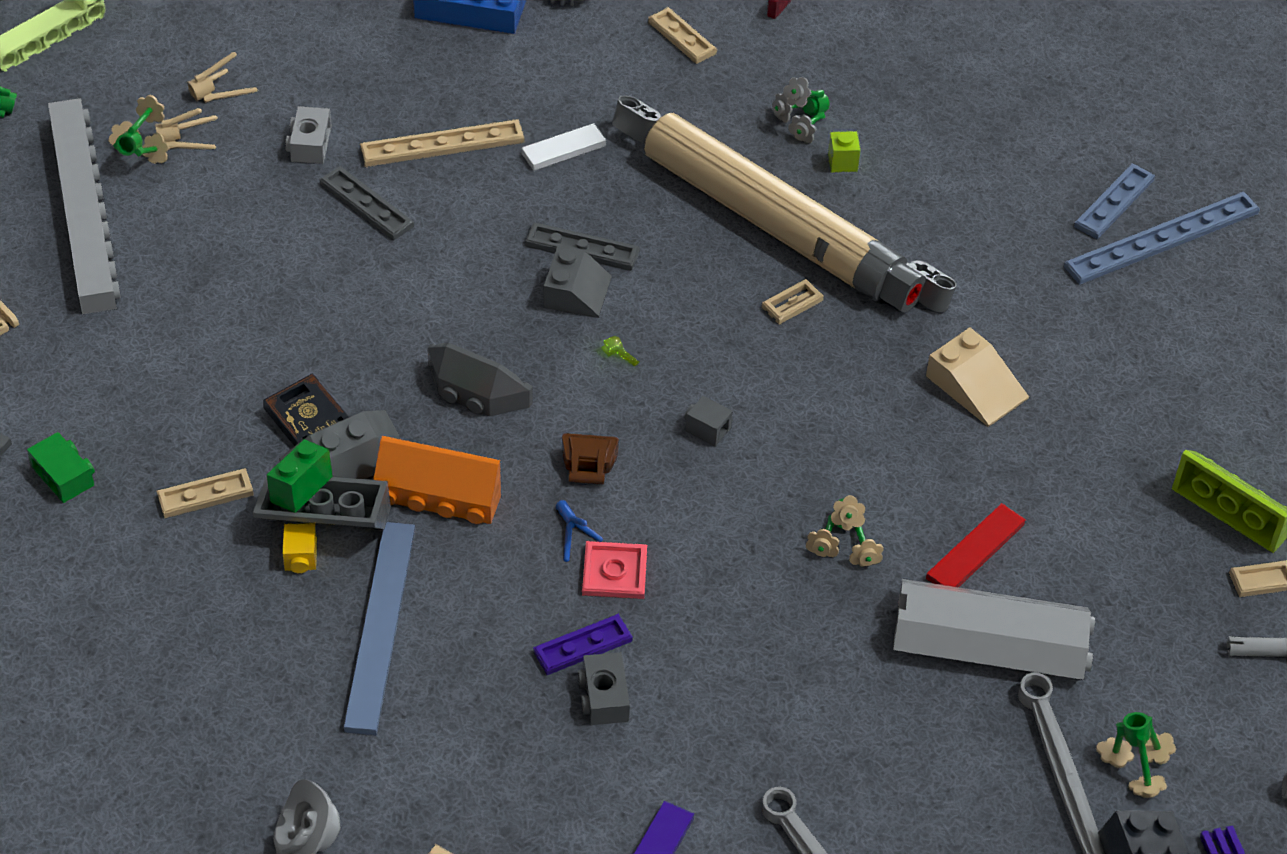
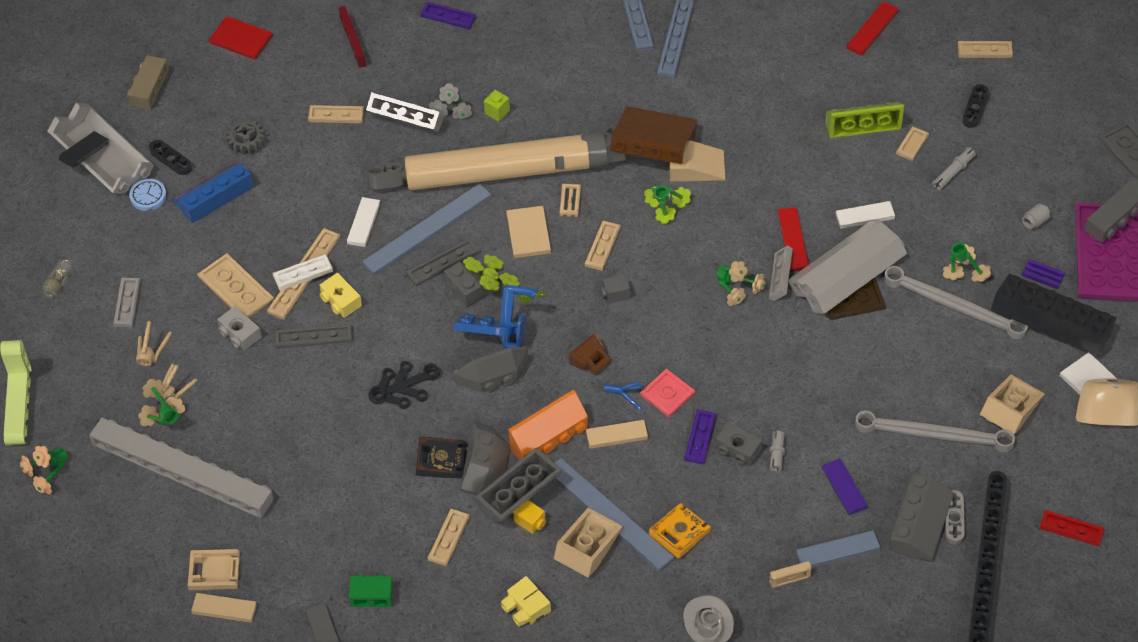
camera: 45 degrees left, 5 degrees up
(176, 622) = (528, 602): none -> light yellow hips
(259, 32) = (127, 302): none -> light grey tile
(299, 475) = (502, 481): green brick -> none
(312, 625) = (587, 542): none -> tan slope
(366, 101) = (235, 286): none -> tan tile
(376, 316) = (402, 386): none -> black plant
(429, 712) = (681, 525): none -> light orange container
(437, 137) = (302, 272): none -> white tile
(439, 187) = (340, 295): none -> light yellow brick
(504, 558) = (616, 434): none -> tan tile
(545, 358) = (505, 326): none -> blue plate
(604, 293) = (489, 274): none -> lime plant
(612, 204) = (426, 229): none -> sand blue tile
(638, 737) = (777, 451): none -> light grey pin
(706, 293) = (528, 231): none -> tan tile
(741, 83) = (405, 112): none -> brick
(761, 371) = (602, 245): none -> tan tile
(884, 373) = (660, 195): none -> lime plant
(907, 566) = (780, 273): none -> light grey tile
(922, 39) = (448, 15): none -> dark purple tile
(959, 306) = (653, 134): none -> reddish brown panel
(961, 681) = (862, 301): none -> dark brown tile
(1099, 599) = (864, 214): none -> white tile

